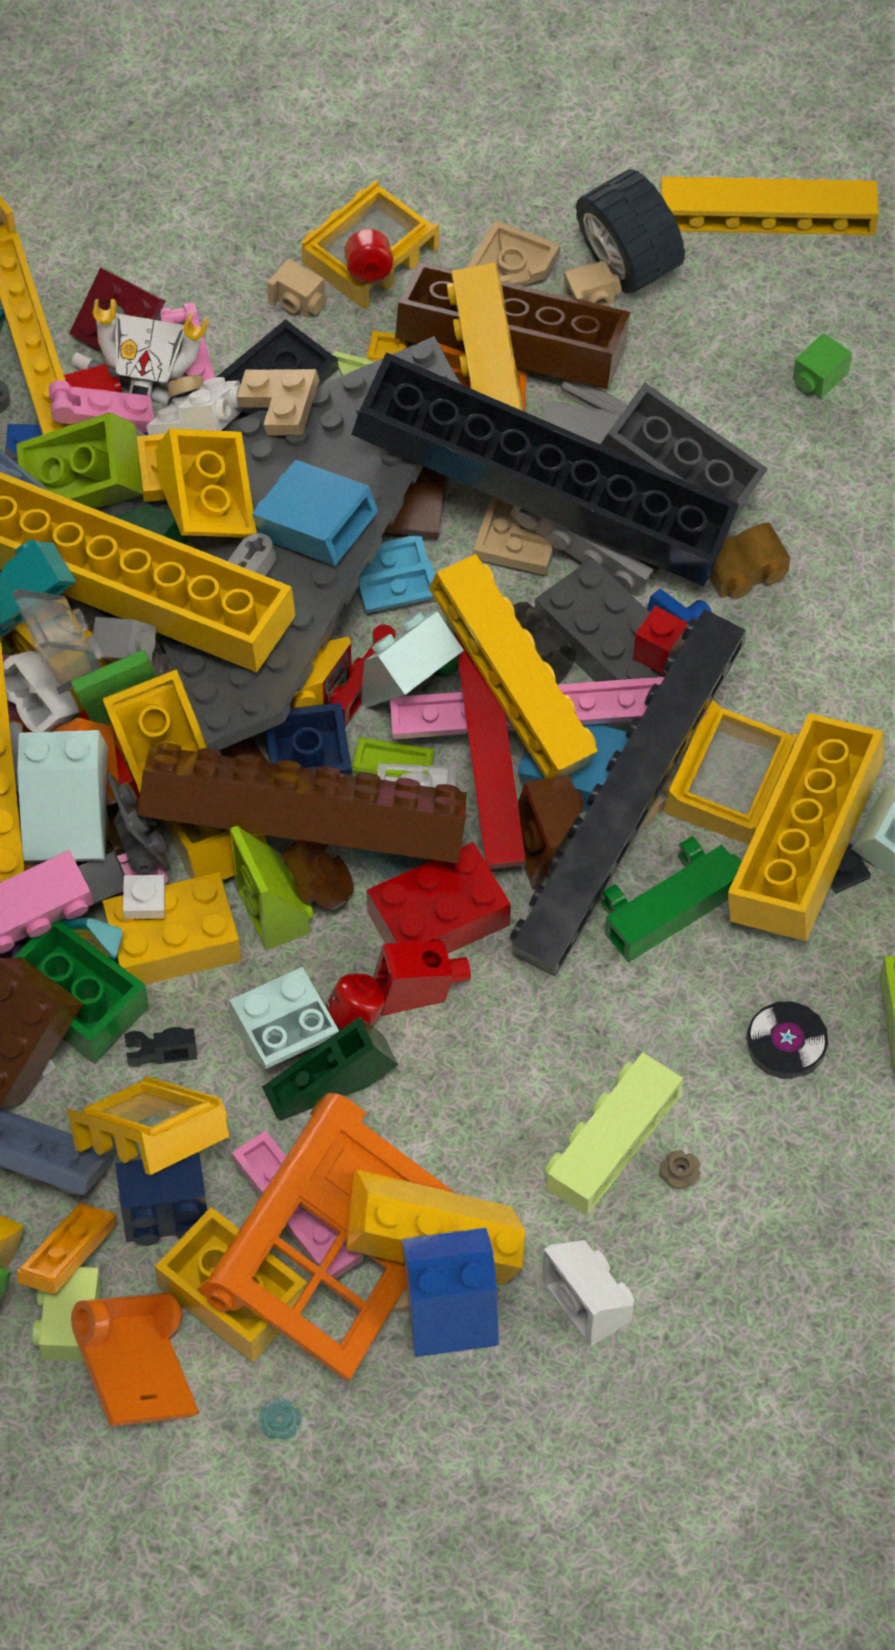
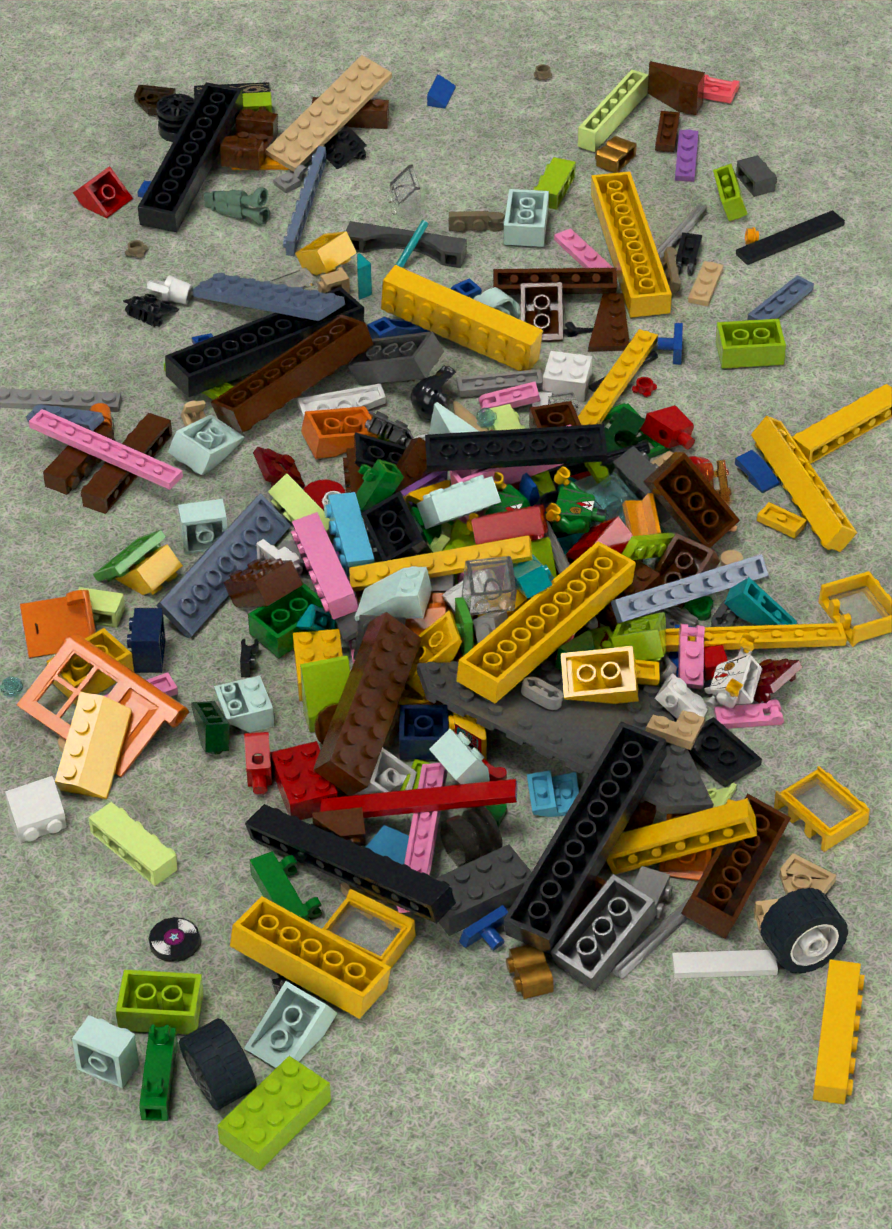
camera: 100 degrees right, 15 degrees down
(66, 1248) = (123, 594): light orange tile -> none
(144, 896) = (331, 639): white plate -> none
(159, 1115) = (185, 627): yellow window -> none
(185, 385) = (709, 702): tan tile -> none
(297, 289) = (786, 768): tan brick -> none
(315, 512) = (568, 718): dark azure brick -> none
(355, 997) = (245, 726): red head -> none
(368, 252) = (794, 789): red head -> none
(451, 1291) = (49, 737): blue slope -> none
(513, 668) = (437, 802): yellow brick -> none
(658, 638) = (457, 880): red brick -> none
(673, 342) = (724, 963): none -> white tile
(680, 1179) = (103, 879): dark tan plate -> none
(821, 366) = (687, 1037): bright green brick -> none

